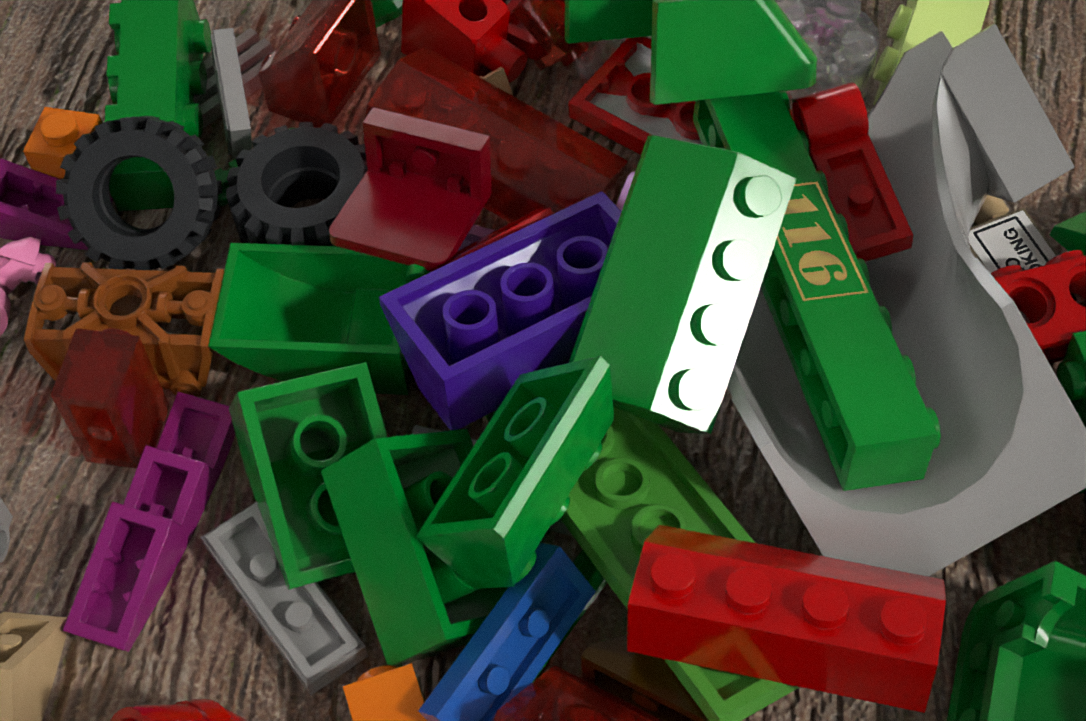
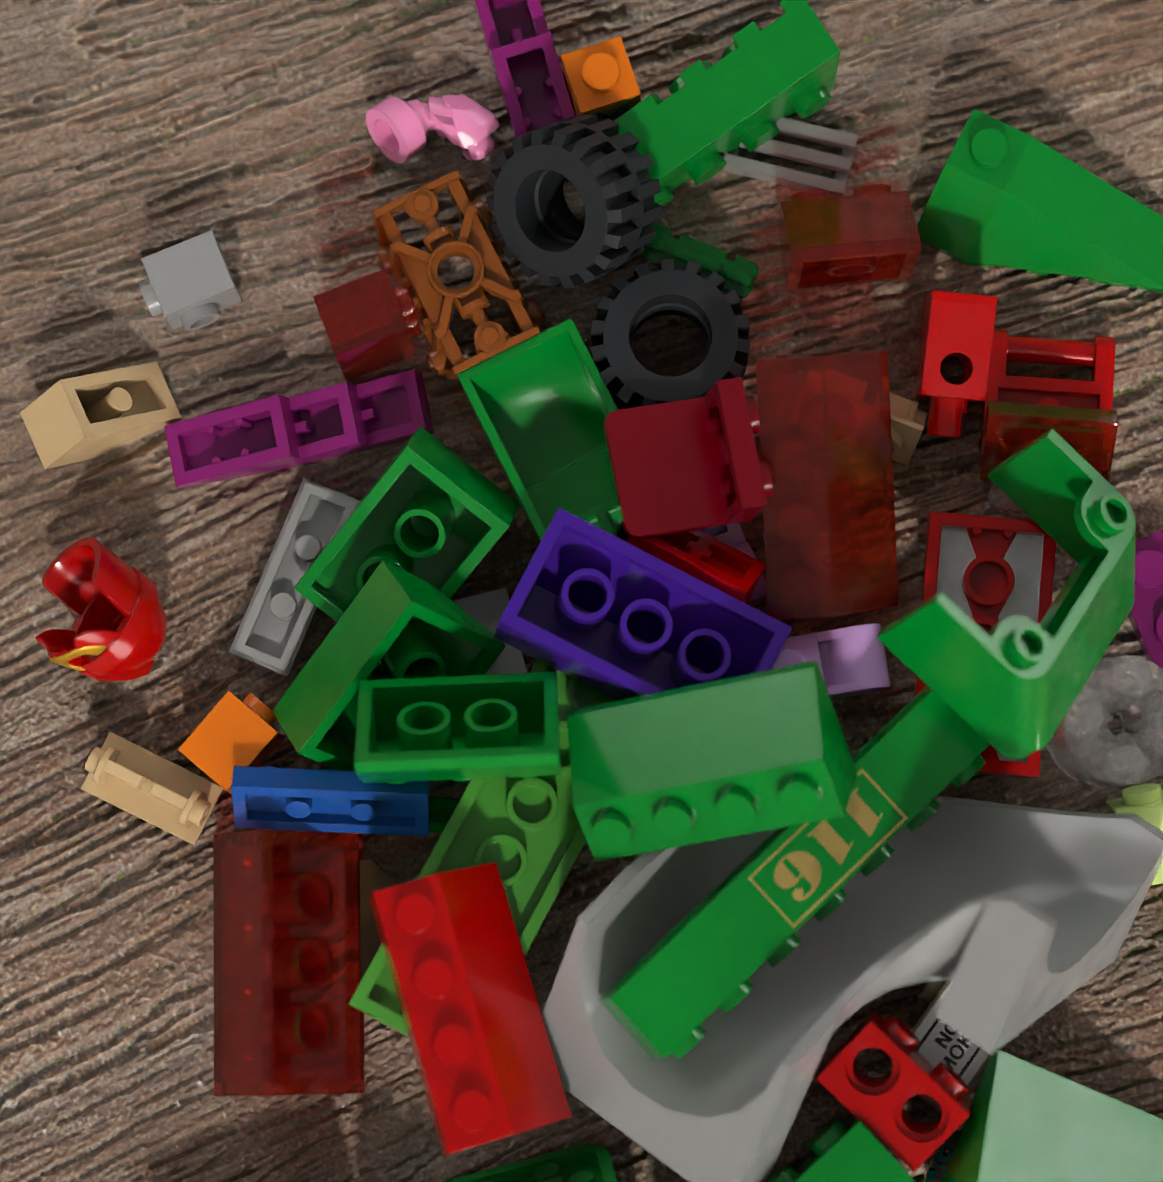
camera: 60 degrees right, 25 degrees up
(231, 91) = (751, 186): light grey tile -> none
(855, 177) = (968, 834): red plate -> none

